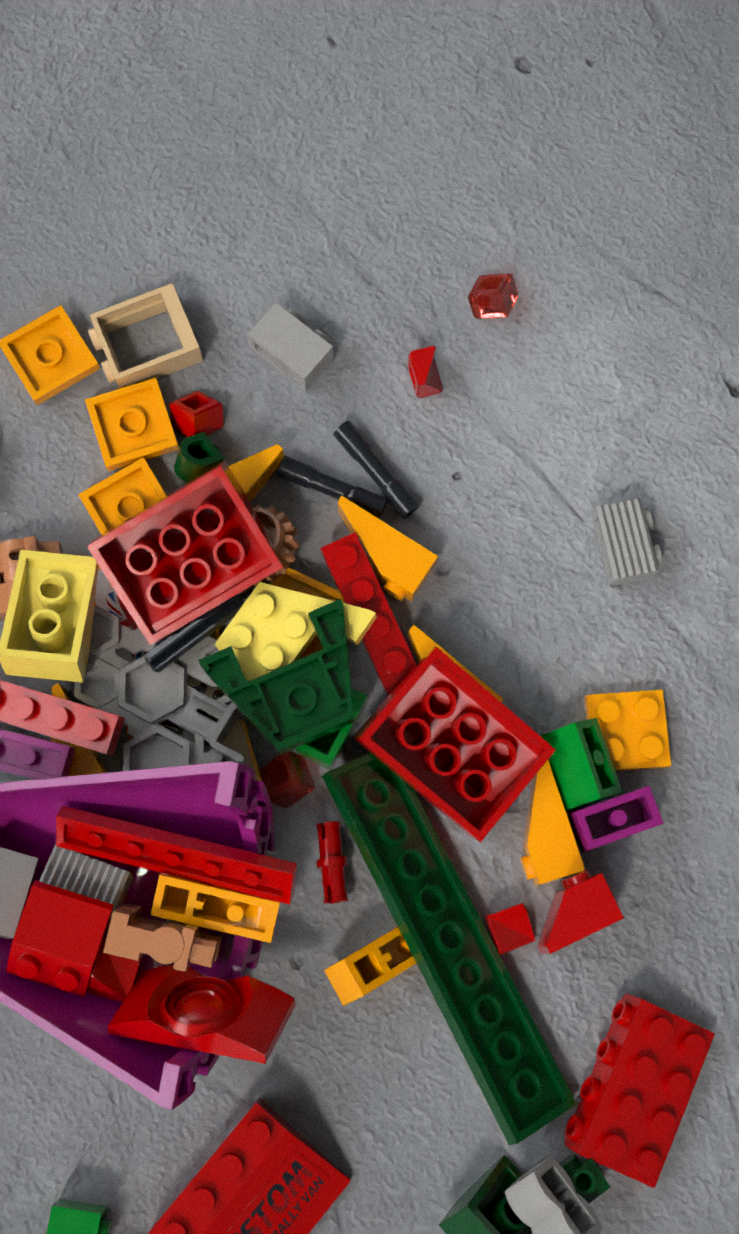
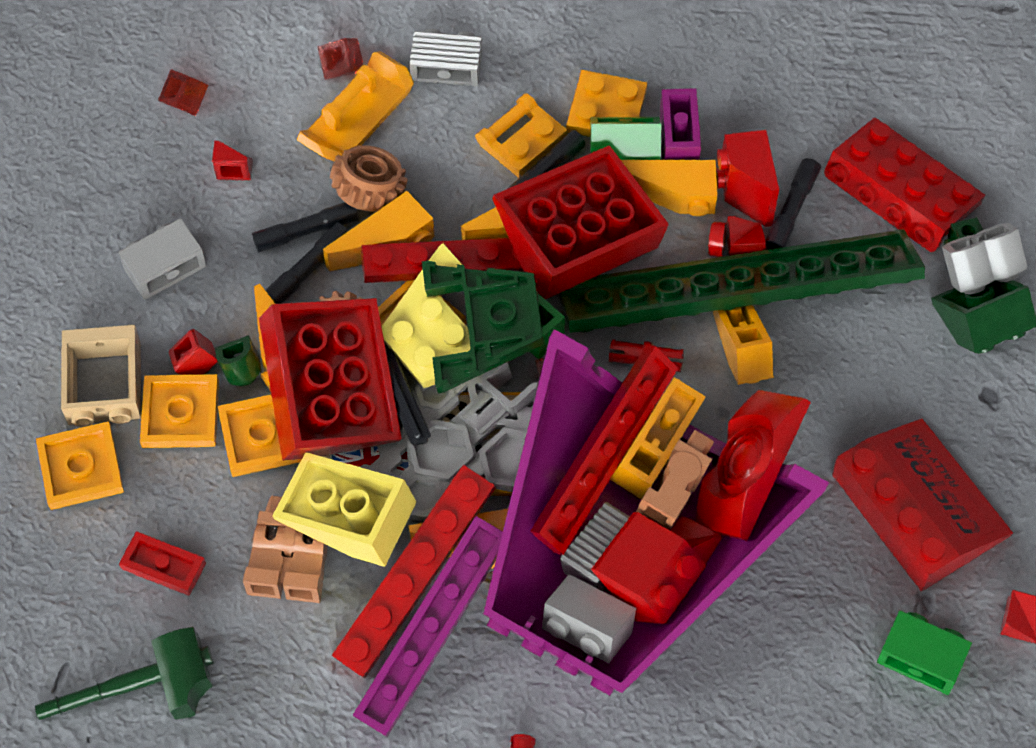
camera: 70 degrees left, 15 degrees down
(462, 509) = (368, 177): none -> nougat gear
(495, 899) = (717, 239): none -> red tile
(532, 474) = (359, 107): none -> light orange piece
(545, 698) = (558, 156): none -> black piece
(555, 663) = (528, 143): none -> light orange plate
(589, 436) = (340, 57): none -> clear red slope
(594, 972) = (800, 188): none -> black piece

